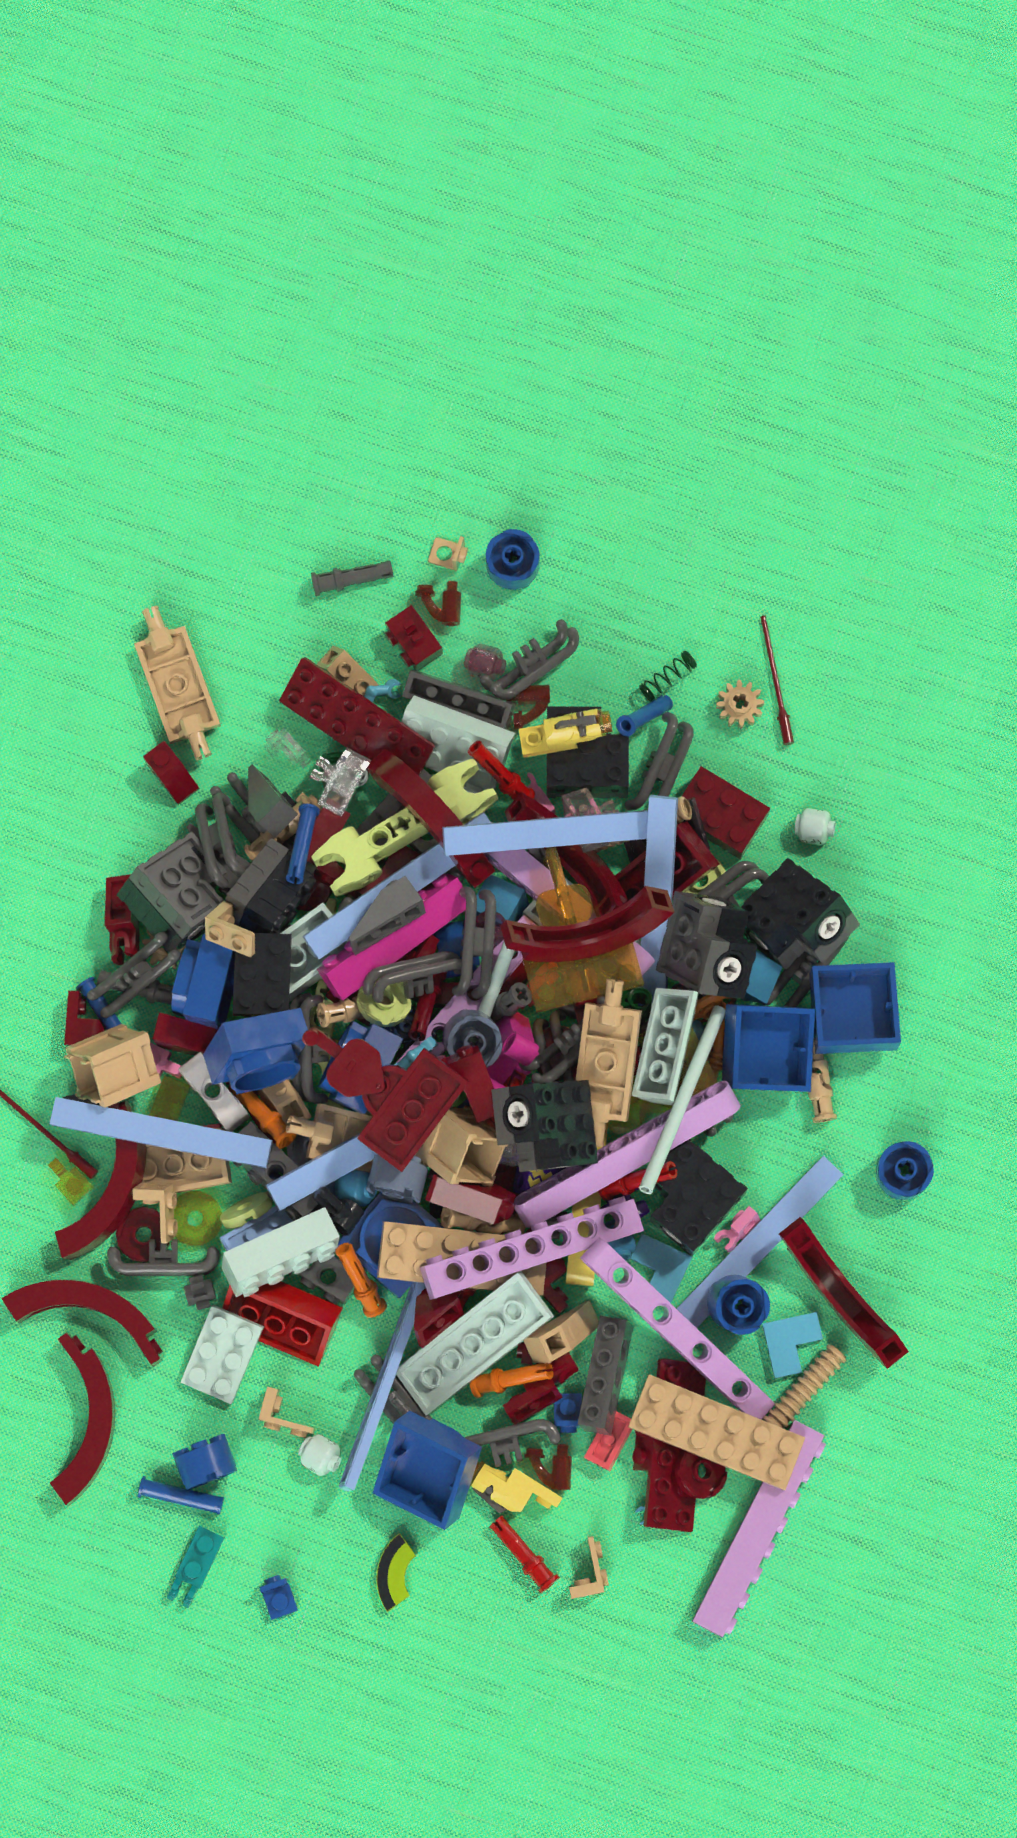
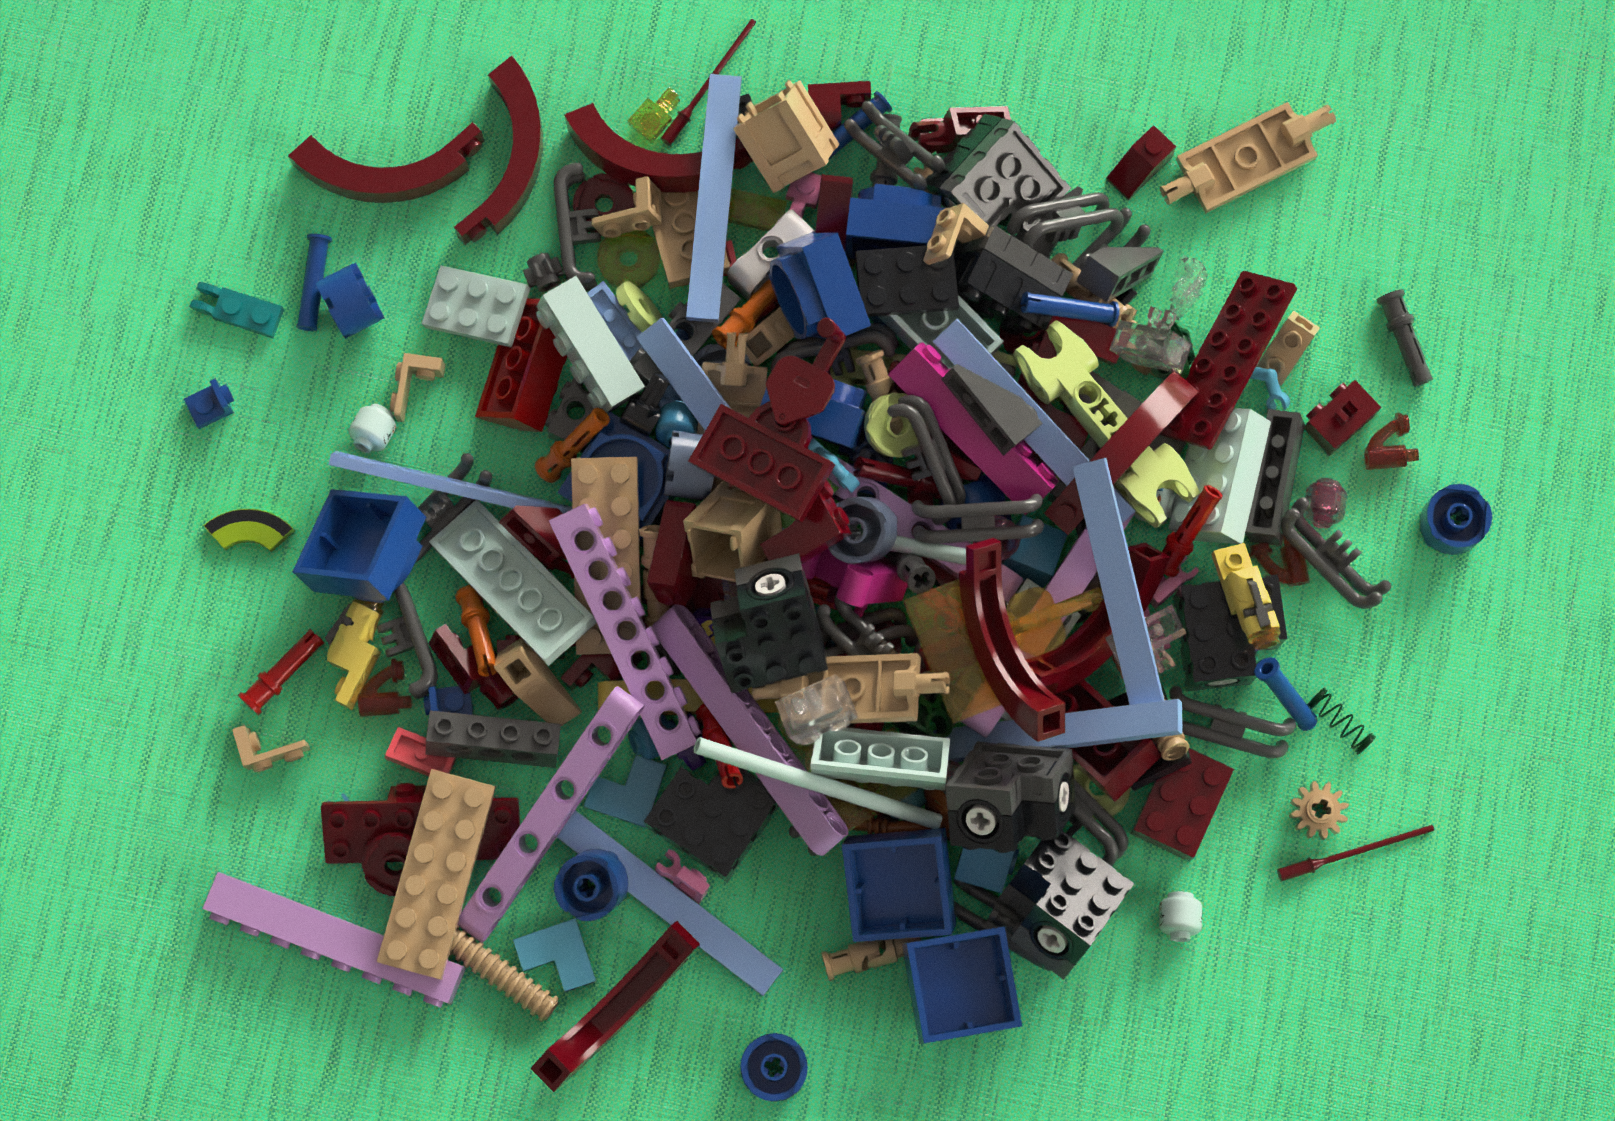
camera: 80 degrees right, 0 degrees up
(458, 556) = (1451, 456): tan bracket -> none
(623, 1091) = (816, 710): none -> clear brick

